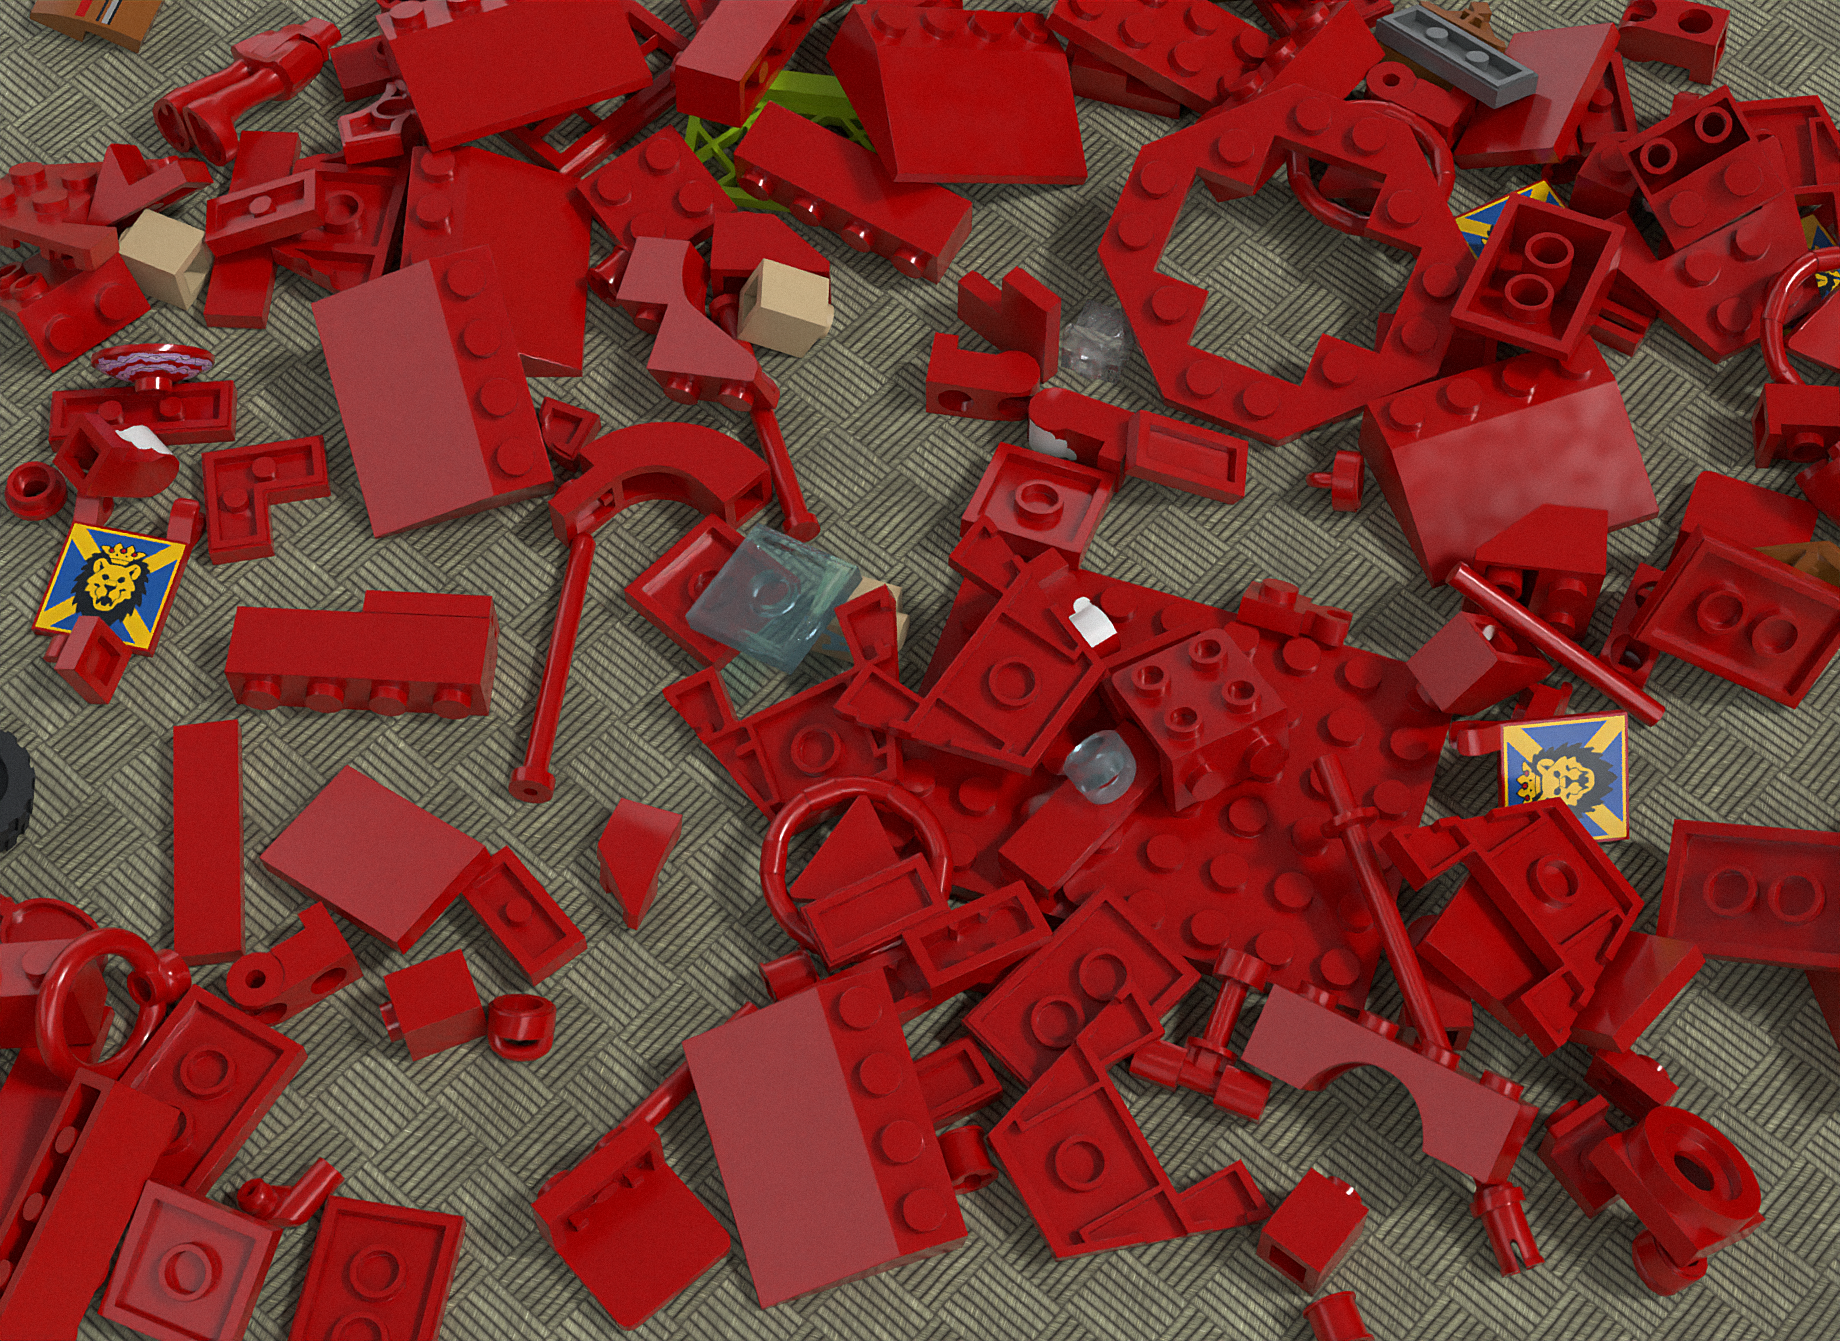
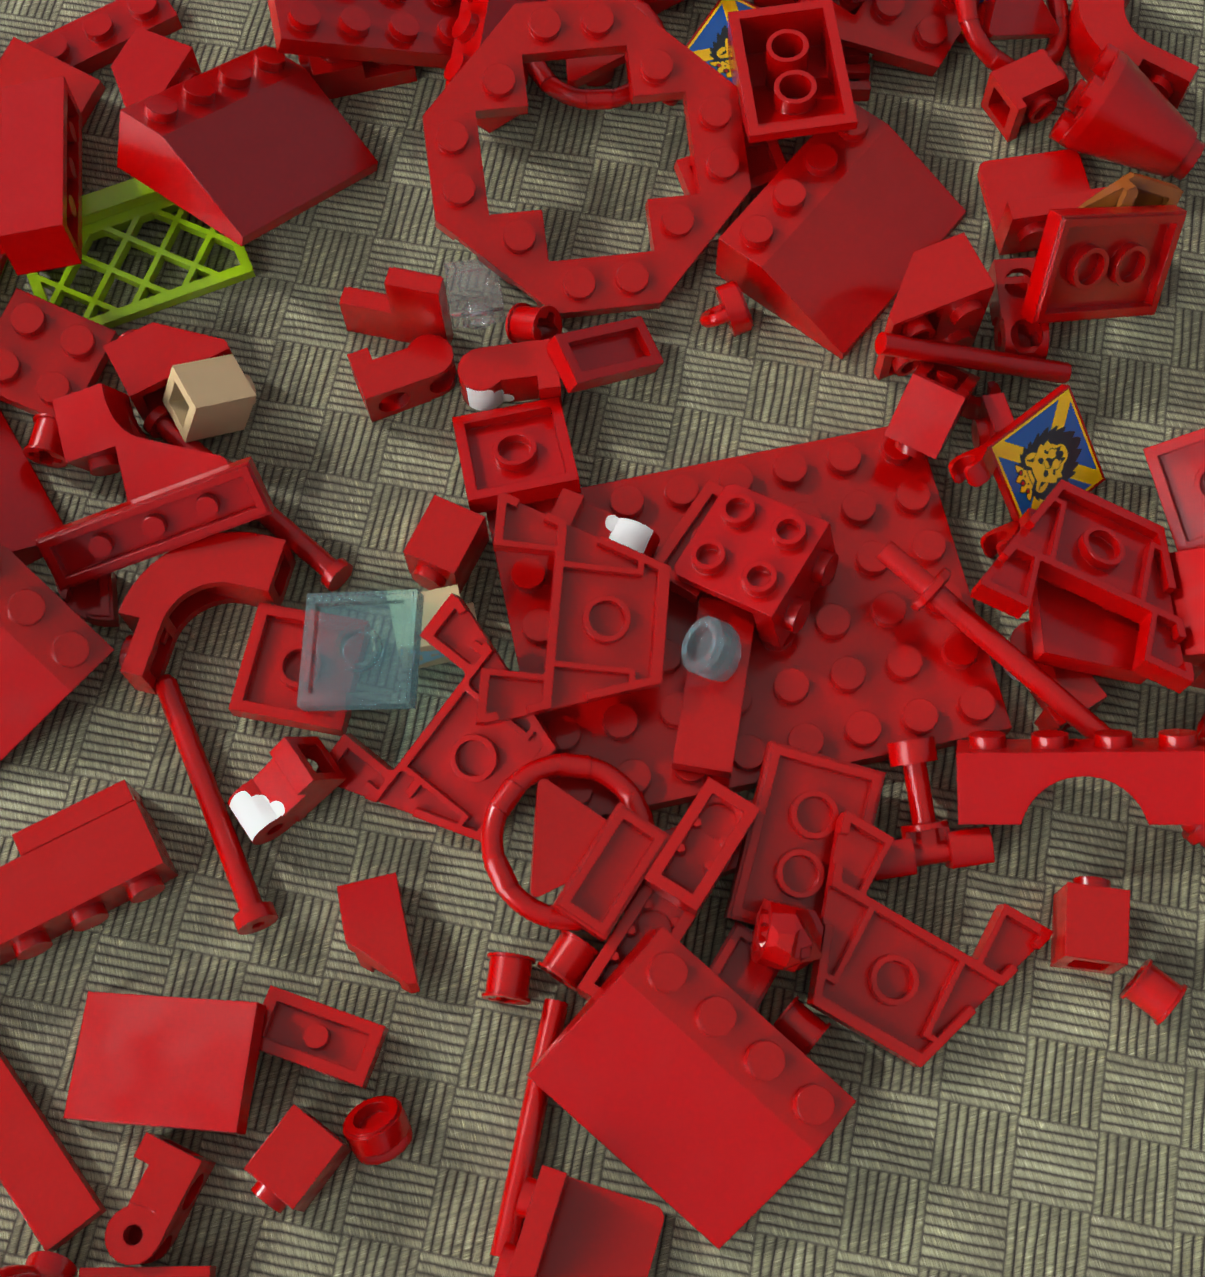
camera: 30 degrees left, 10 degrees up
(629, 684) = (285, 788): none -> red leg
(661, 390) = (155, 523): none -> red tile
(724, 963) = (508, 978): none -> red axle
(851, 193) = (201, 271): red brick -> none
(915, 552) = (446, 545): none -> red brick
(1001, 1059) = (786, 936): none -> red rock
(1131, 383) = (532, 323): none -> red axle
(1280, 608) = (754, 438): red plate -> none

